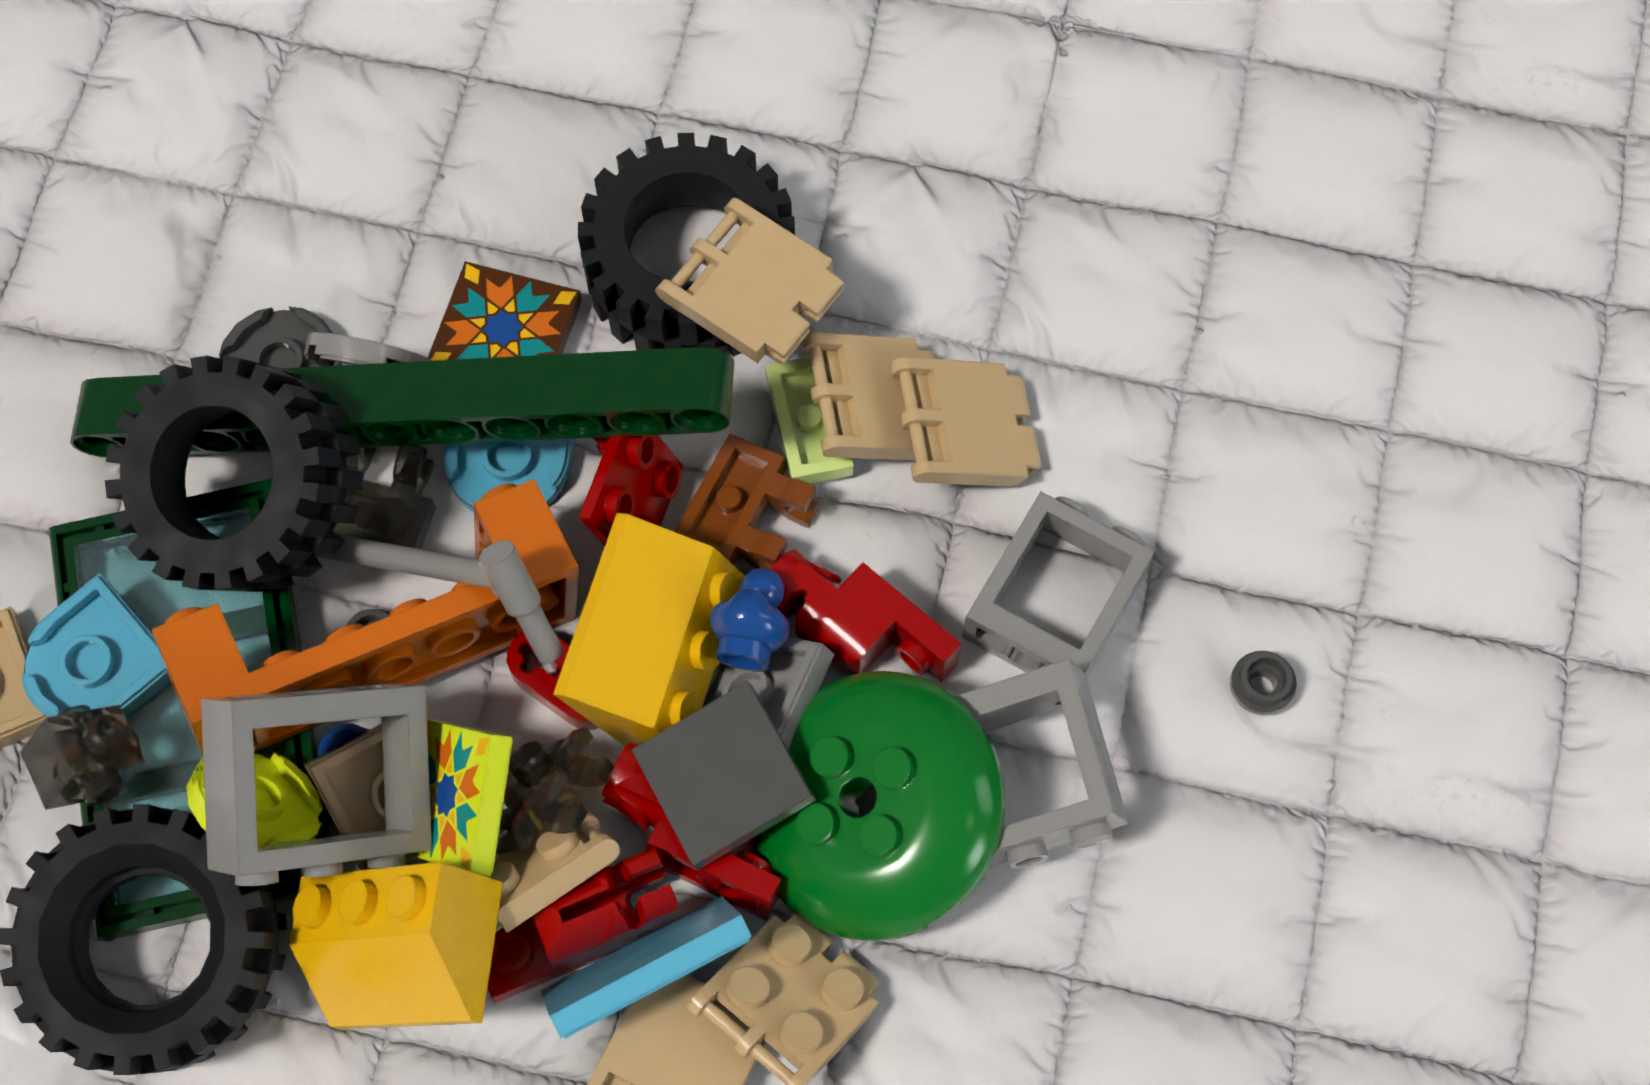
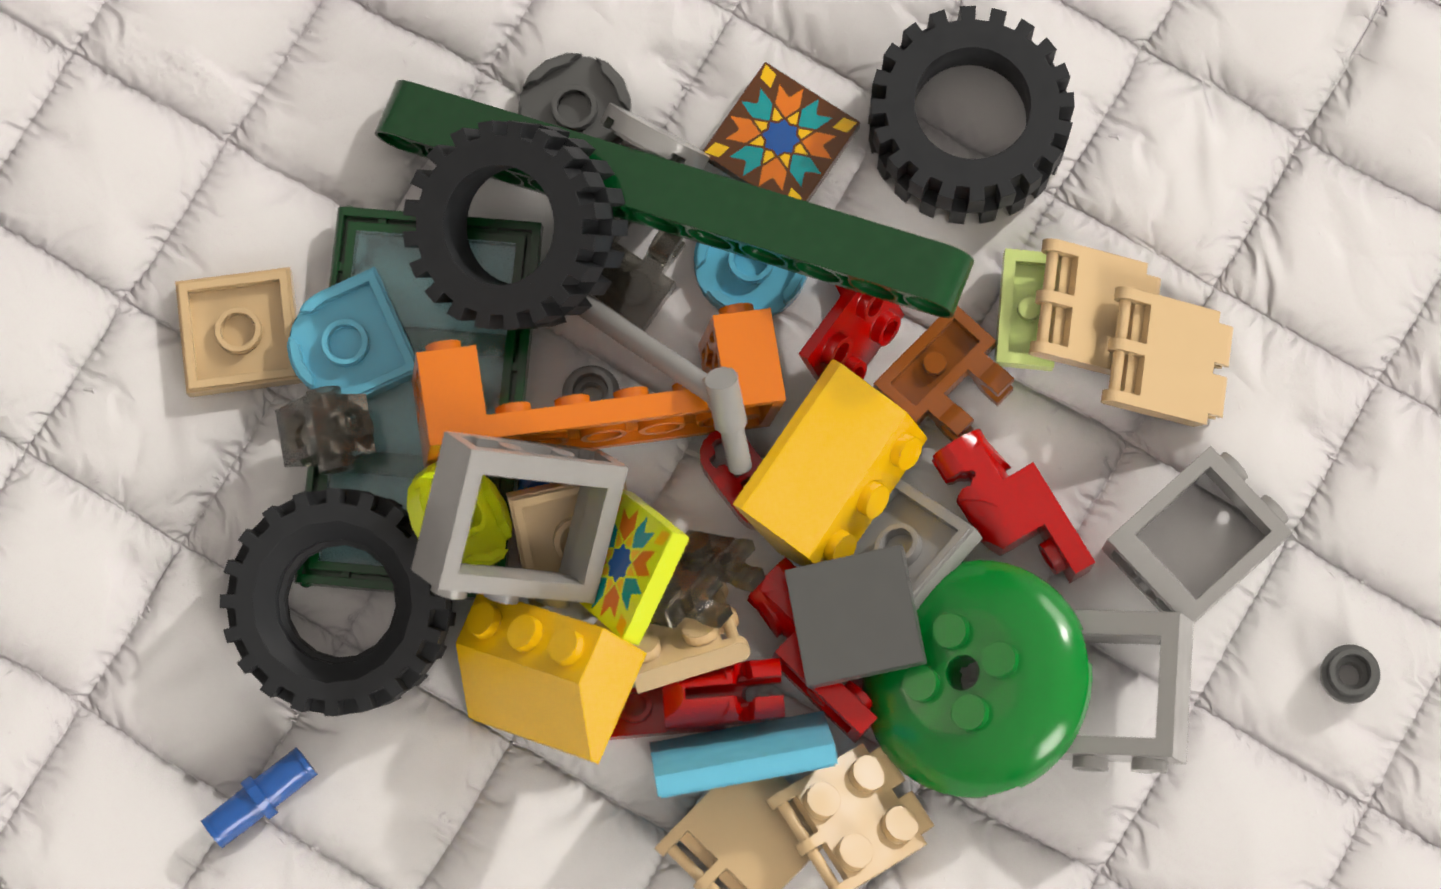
camera: 20 degrees right, 10 degrees up
(750, 623) = (917, 492): blue animal -> none
(754, 285) = (1015, 183): tan plate -> none

